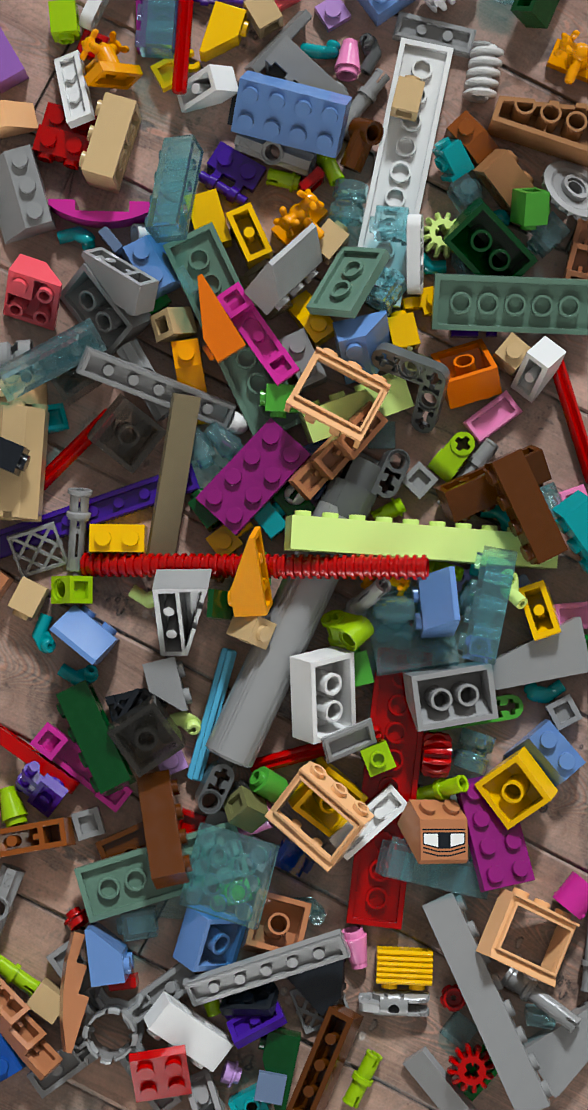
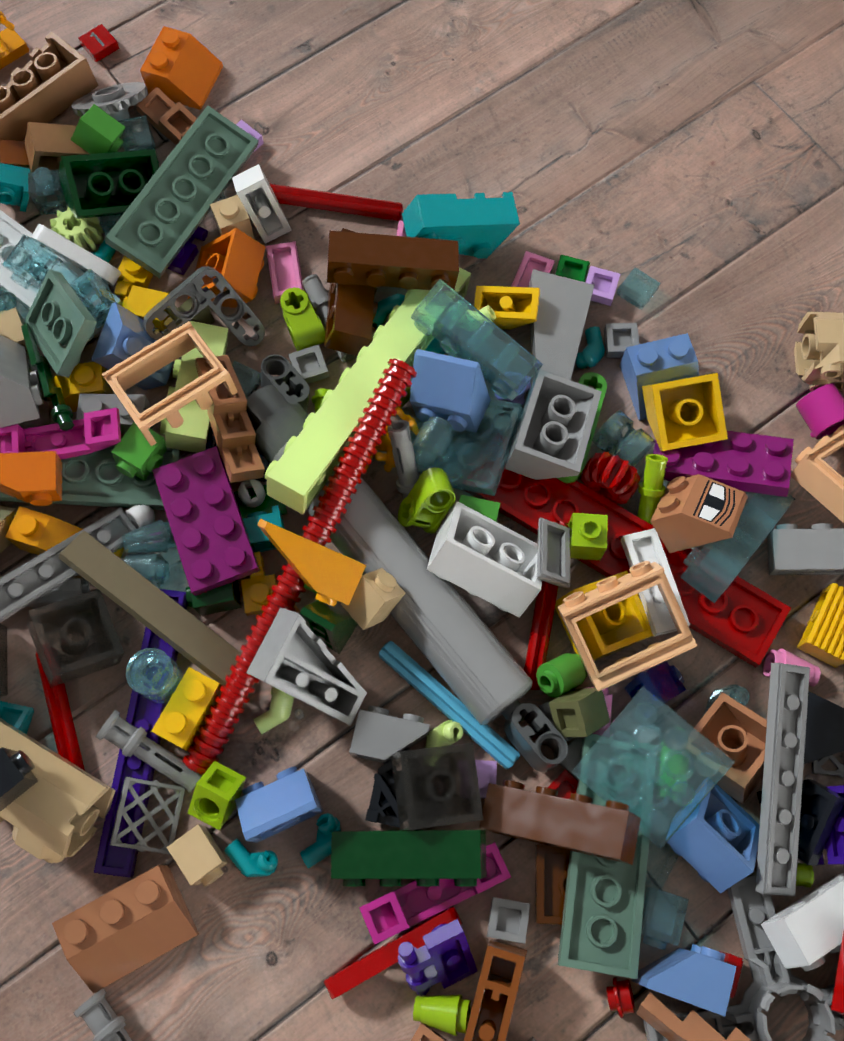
camera: 65 degrees left, 15 degrees down
(127, 504) = (153, 674): none -> clear light blue wheel
(292, 310) = (60, 413): none -> dark green piece

